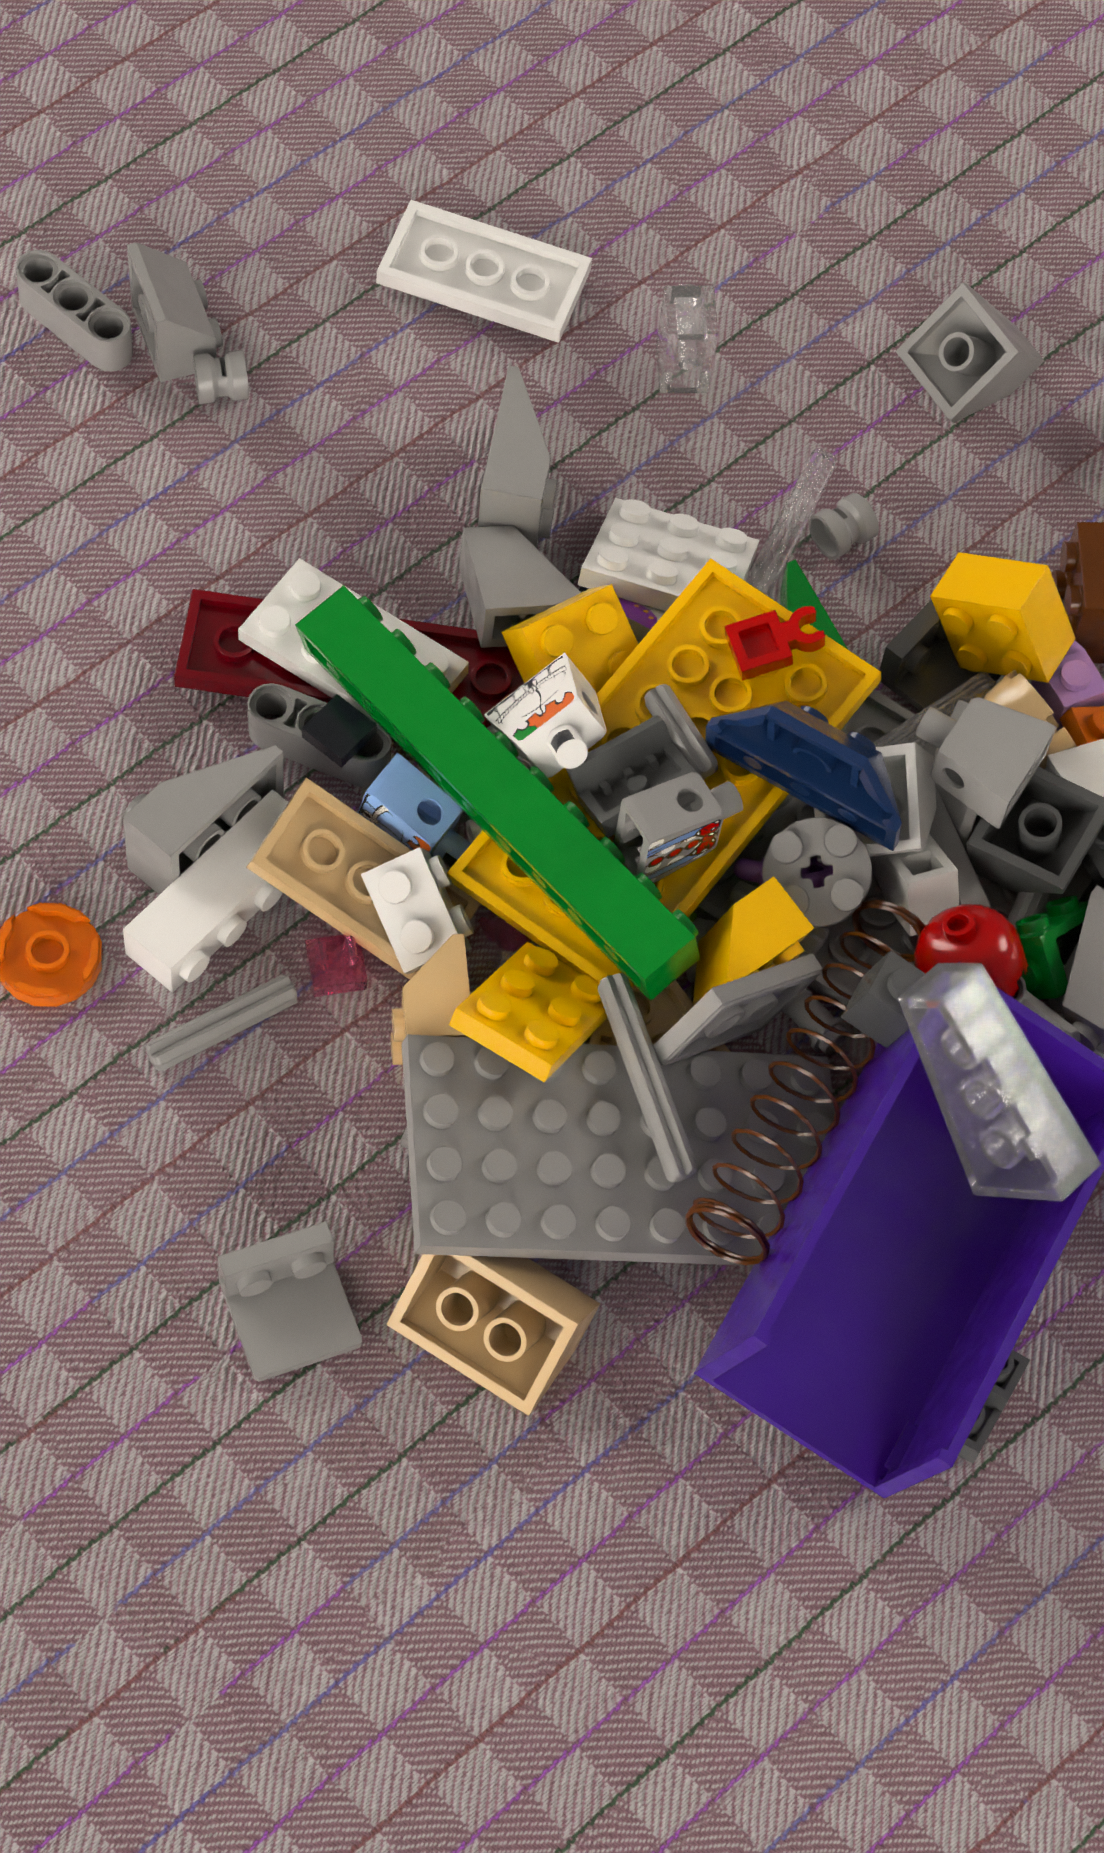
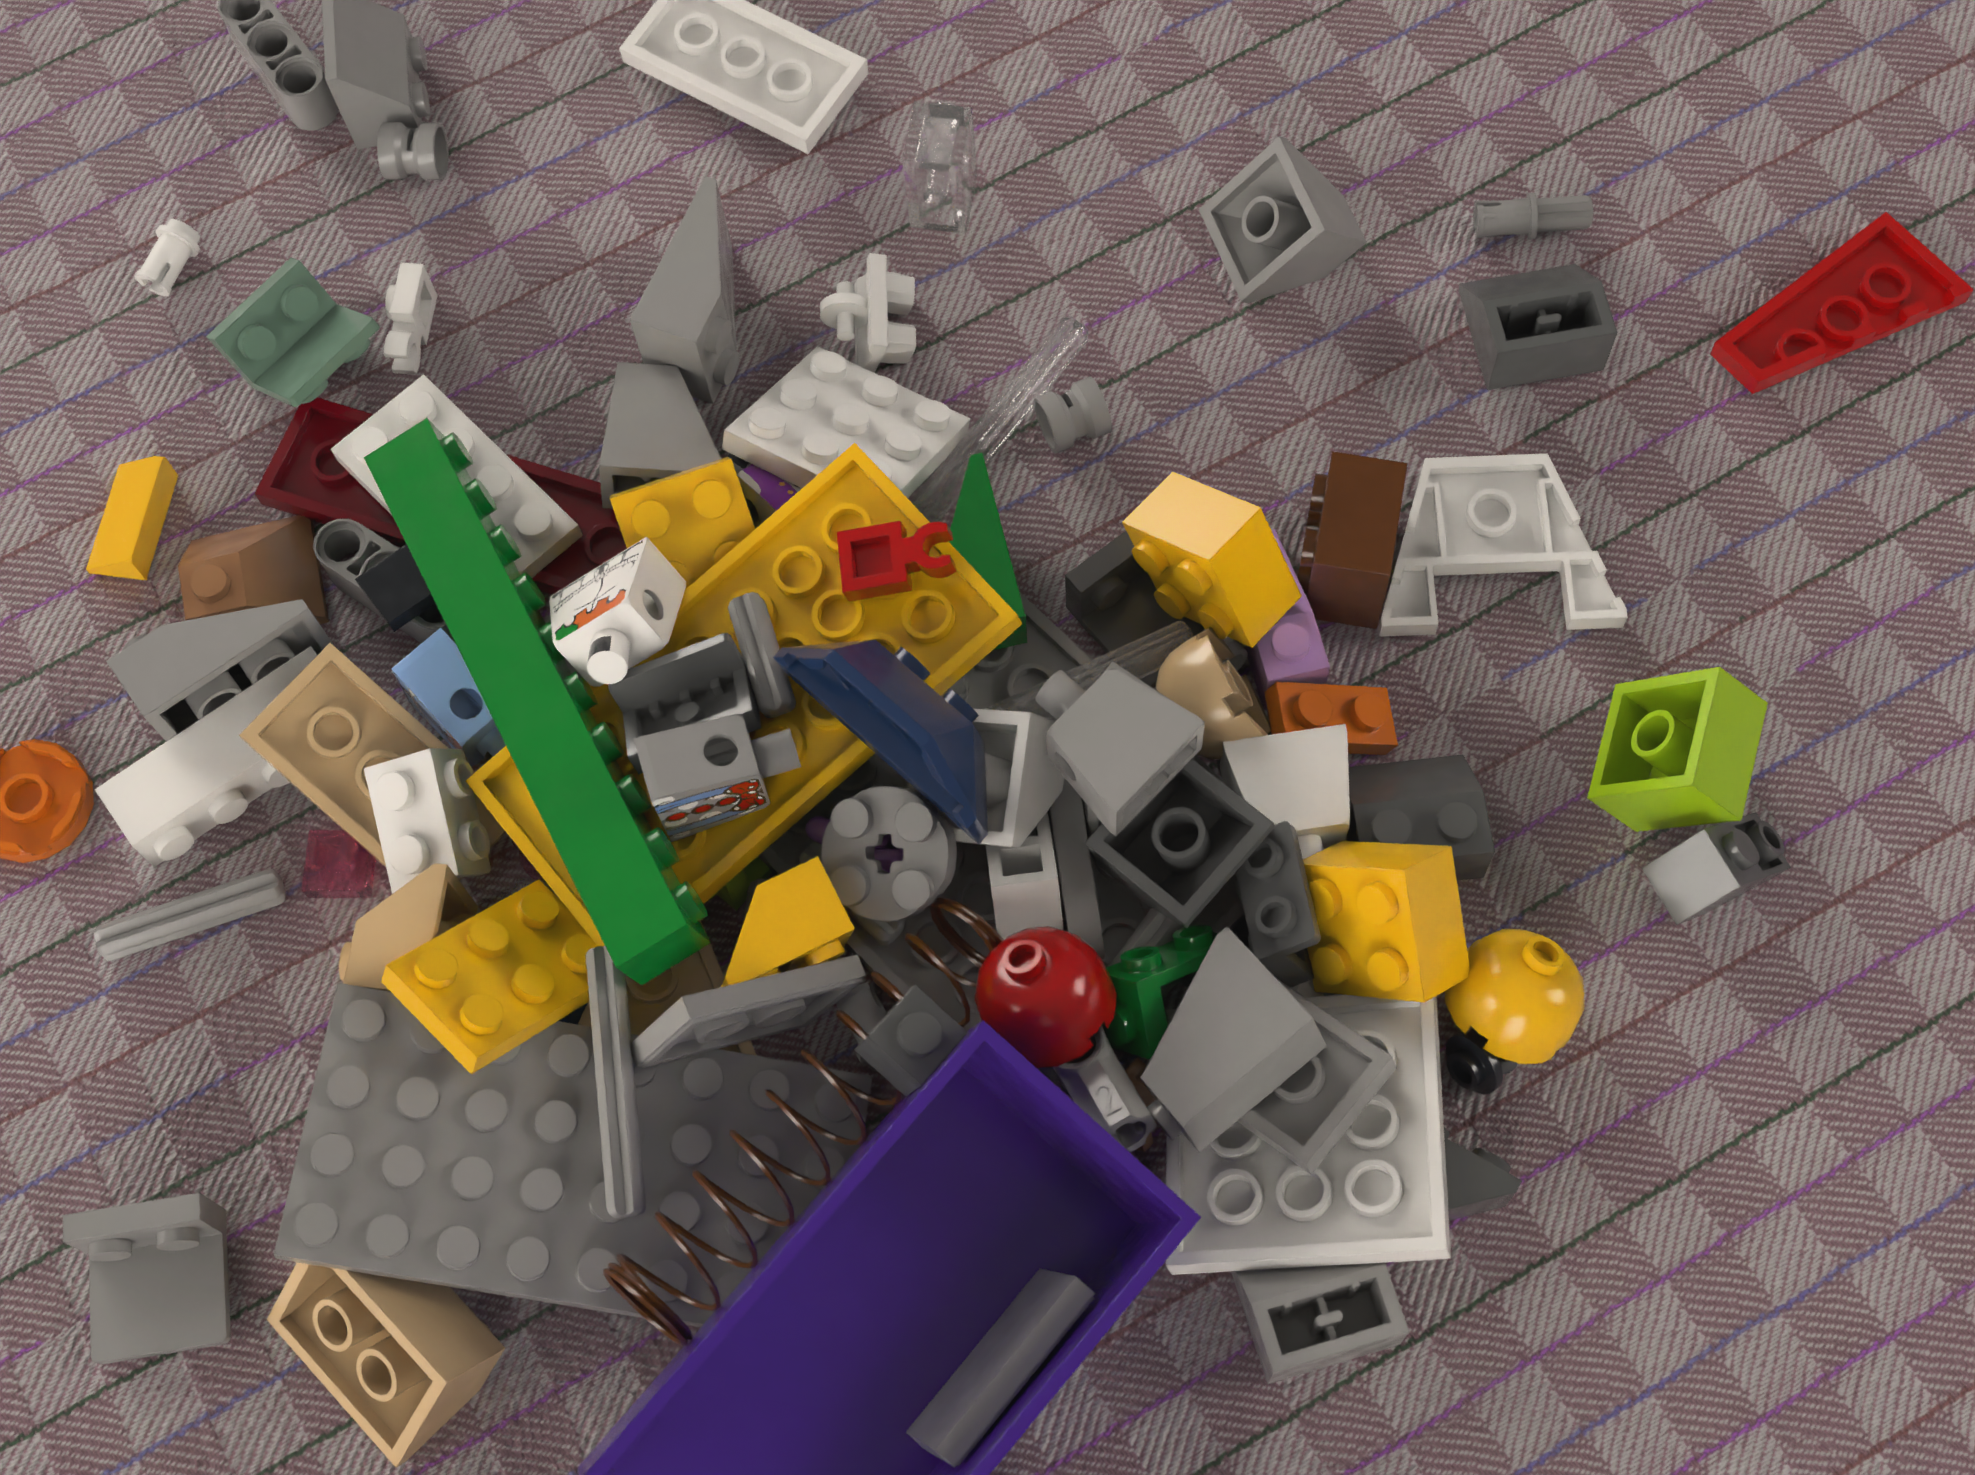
camera: 25 degrees right, 5 degrees up
(30, 481) = (168, 256): none -> white pin
(63, 712) = (133, 519): none -> yellow slope
(168, 547) = (291, 336): none -> sand green bracket
(185, 737) = (253, 570): none -> medium nougat slope
(258, 507) = (411, 308): none -> white plate
(652, 466) = (867, 313): none -> white hips
(993, 1089) = (987, 1194): clear wedge -> none
(993, 1256) = (1000, 1365): none -> light grey tile

